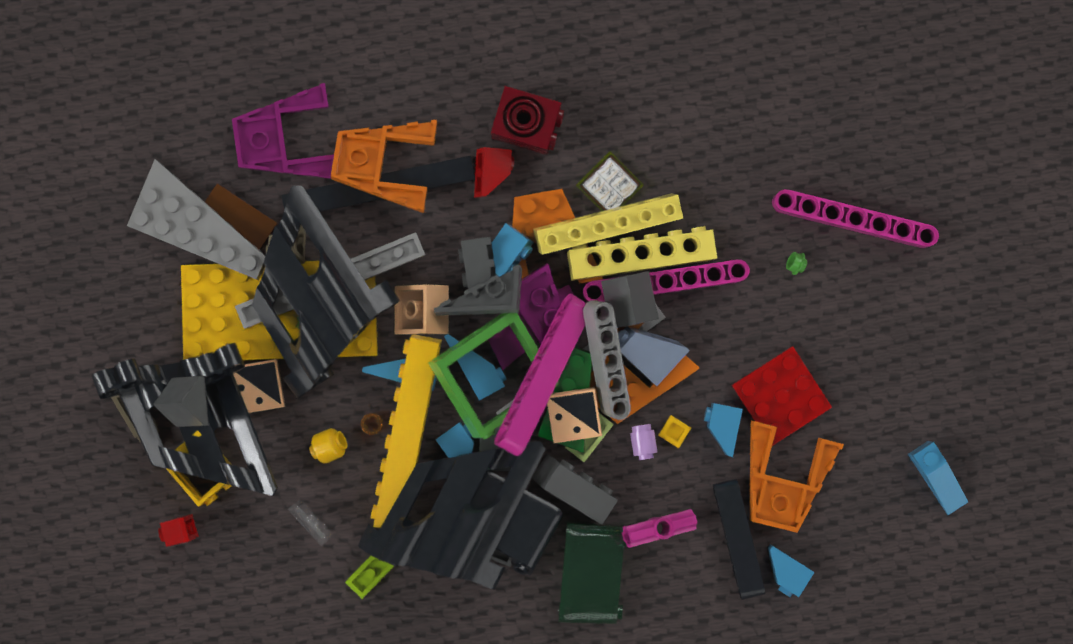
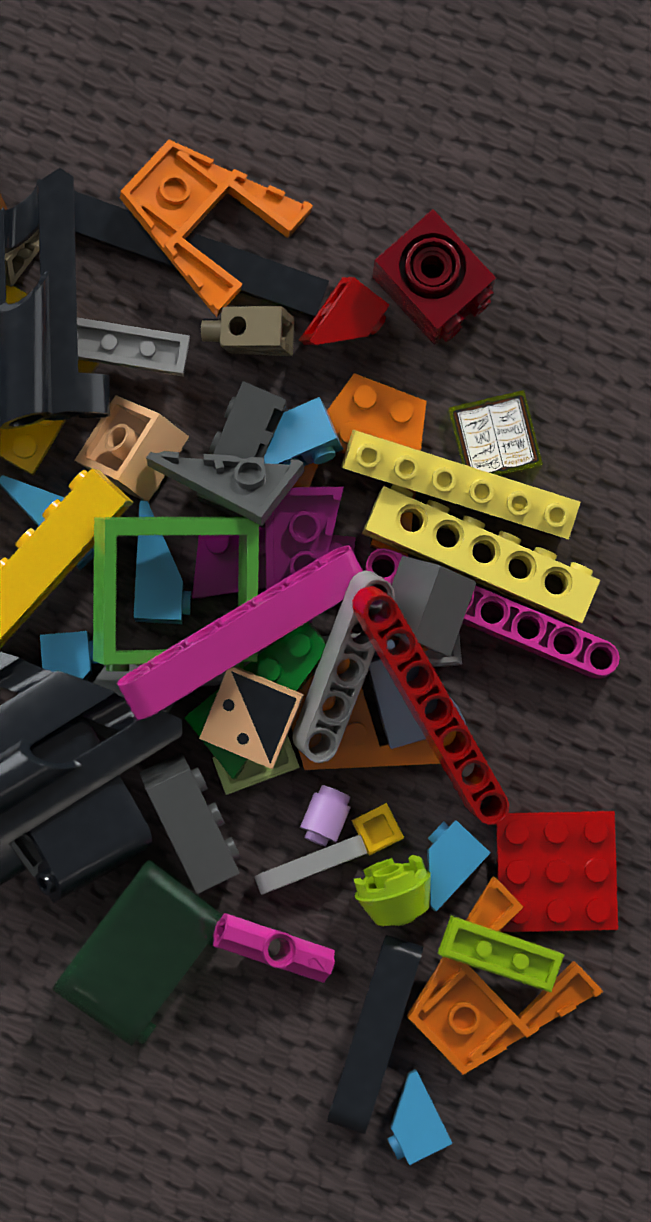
camera: 25 degrees right, 5 degrees down
(261, 137) = (59, 86): magenta wing -> none
(454, 204) = (266, 333): none -> dark tan torso
(652, 472) = (310, 864): none -> light grey beam
(656, 350) = (419, 693): none -> red beam
(704, 459) = (394, 891): none -> lime cone
(780, 458) = (500, 954): none -> lime tile

